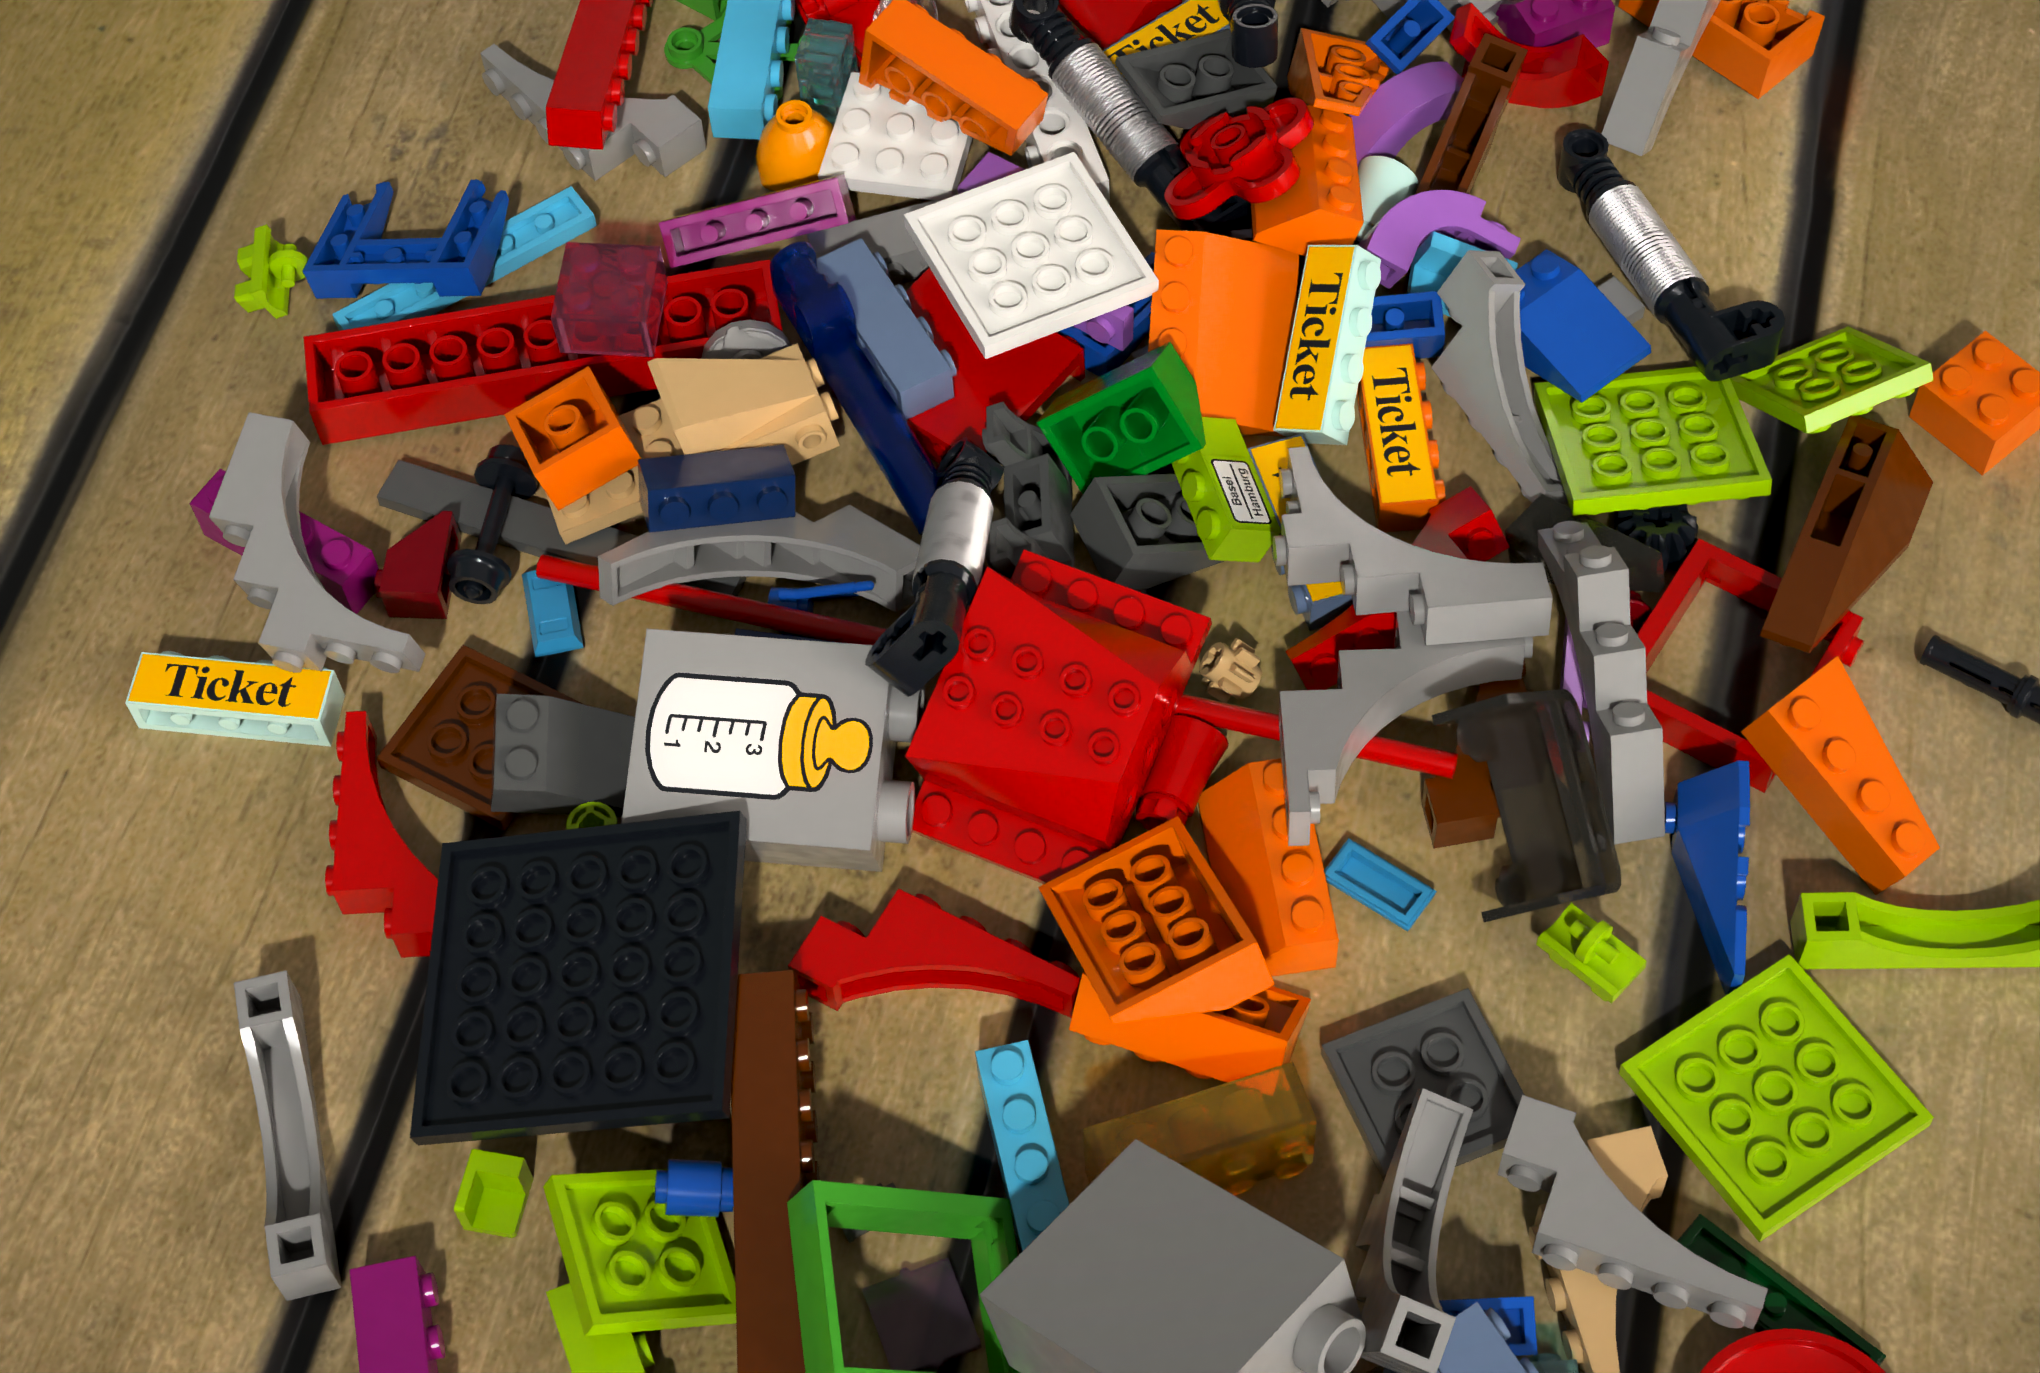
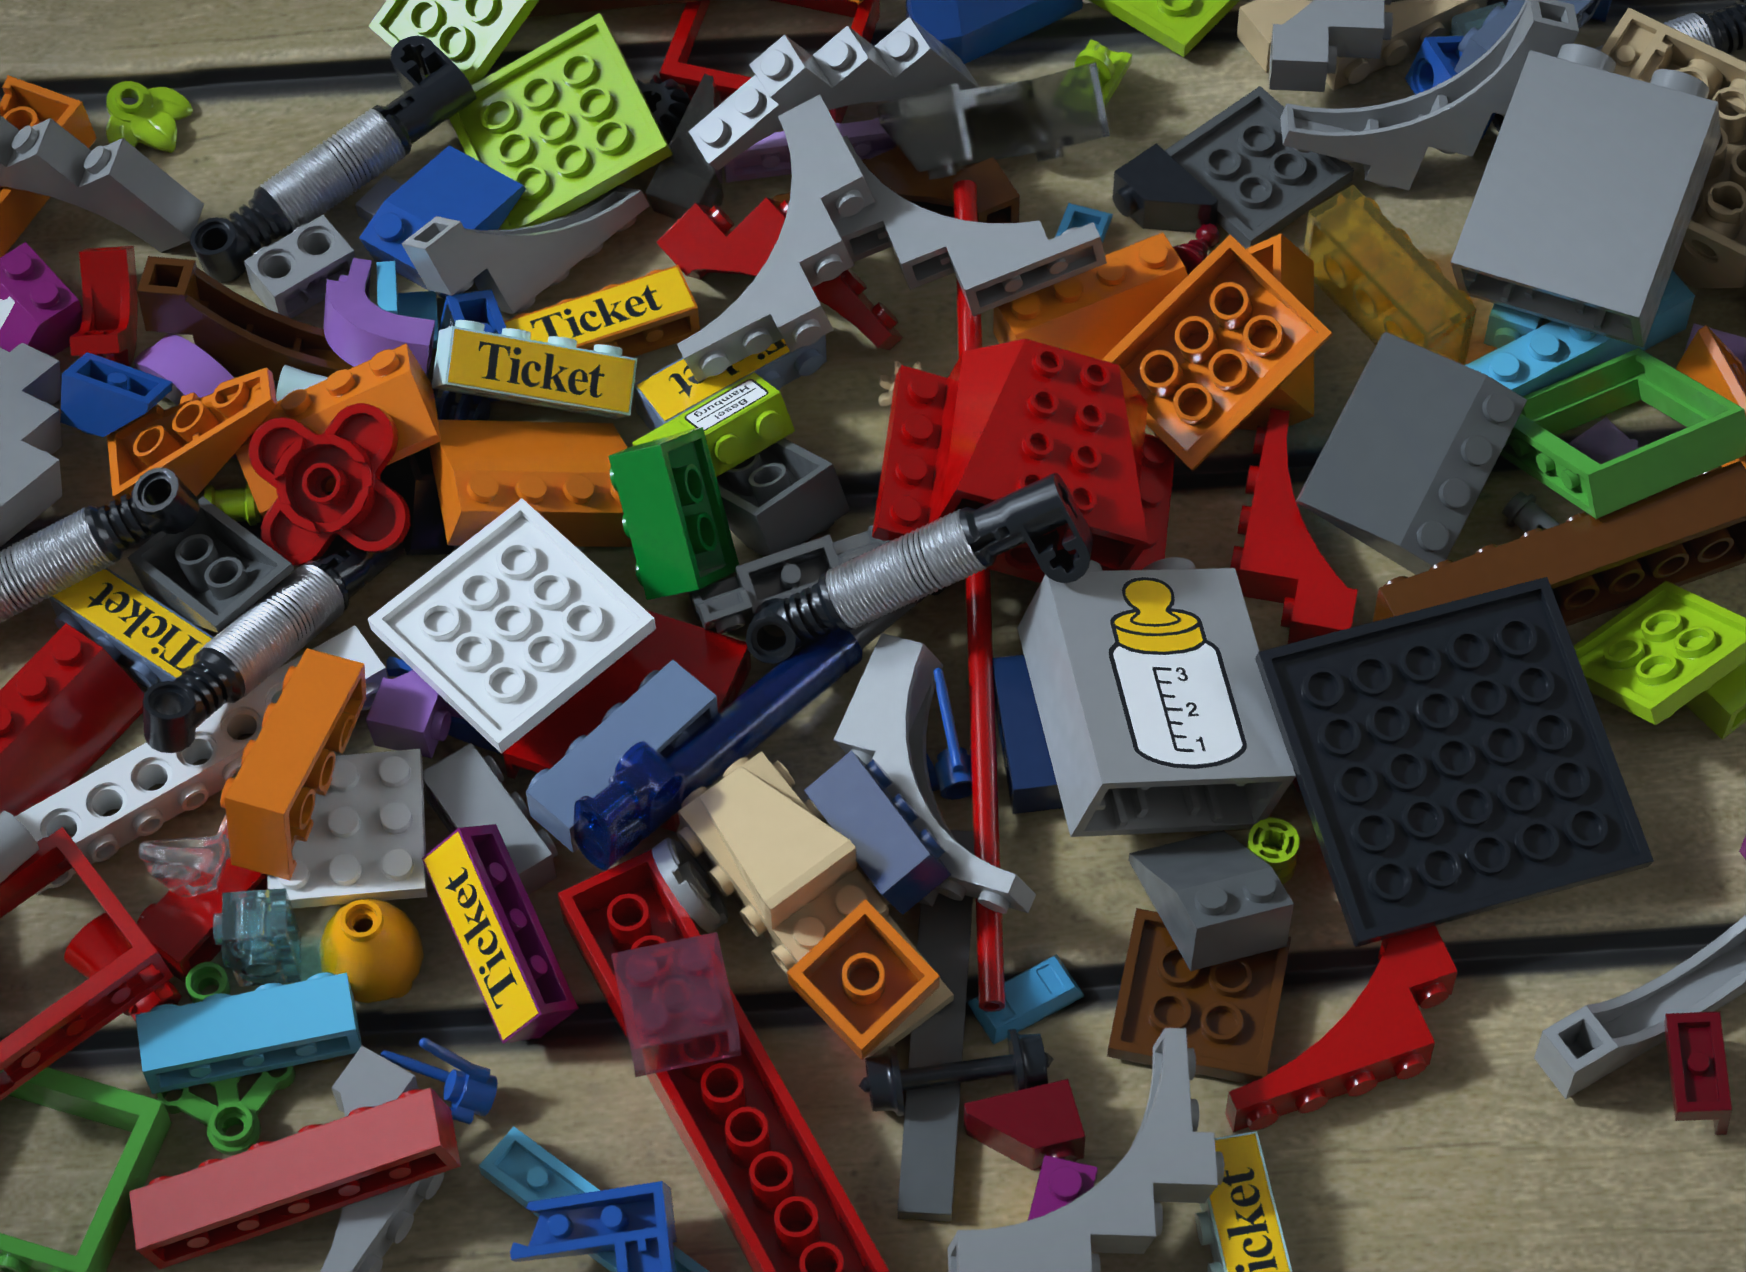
camera: 110 degrees left, 0 degrees up
(201, 1116) = (1698, 1068): none -> dark red panel
(493, 1193) = (1658, 811): lime panel -> none
(642, 191) = (468, 1090): none -> blue plant
(695, 1188) = (1595, 620): blue brick -> none
(958, 1075) = (1411, 453): none -> dark grey slope
(1324, 986) = (1196, 250): none -> dark red piece
(1418, 971) = (1162, 194): none -> black slope
(1543, 215) = (296, 268): none -> light grey brick
(1769, 137) = (149, 119): none -> lime plate

